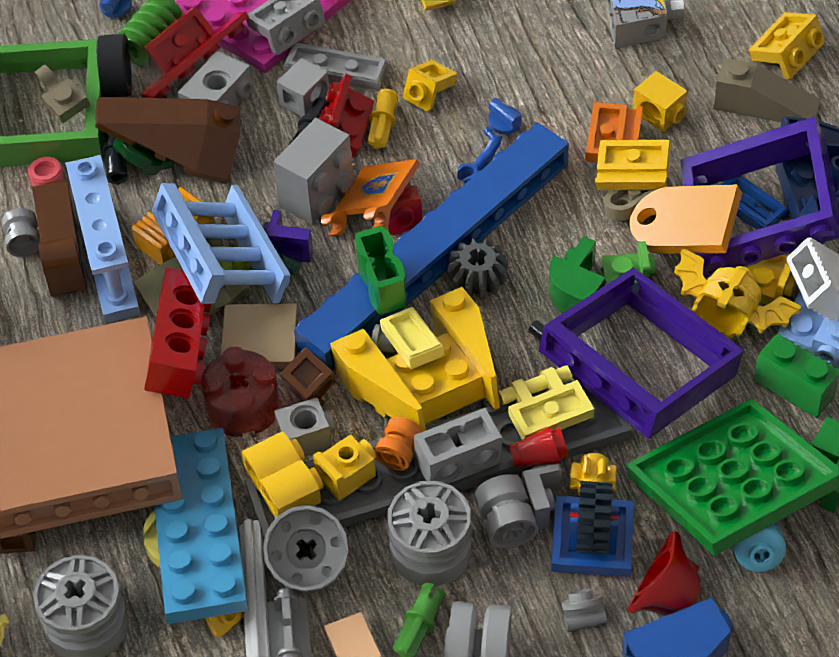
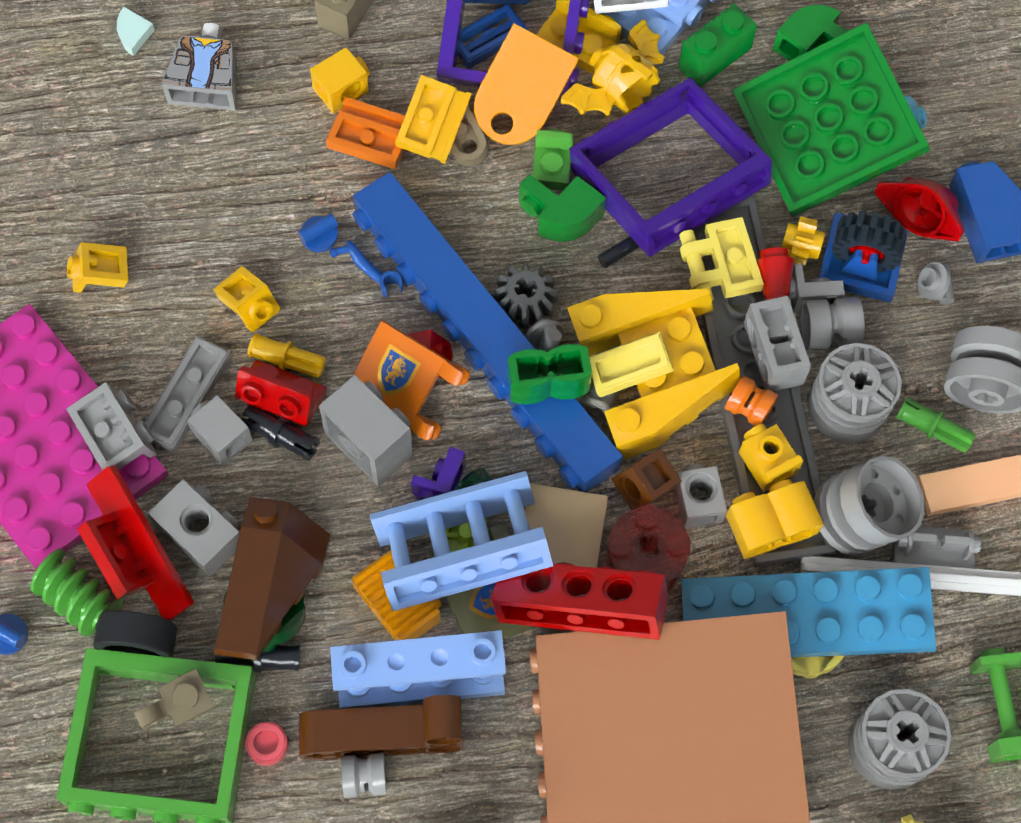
camera: 85 degrees left, 15 degrees up
(436, 287) = (545, 334): none -> light grey plate

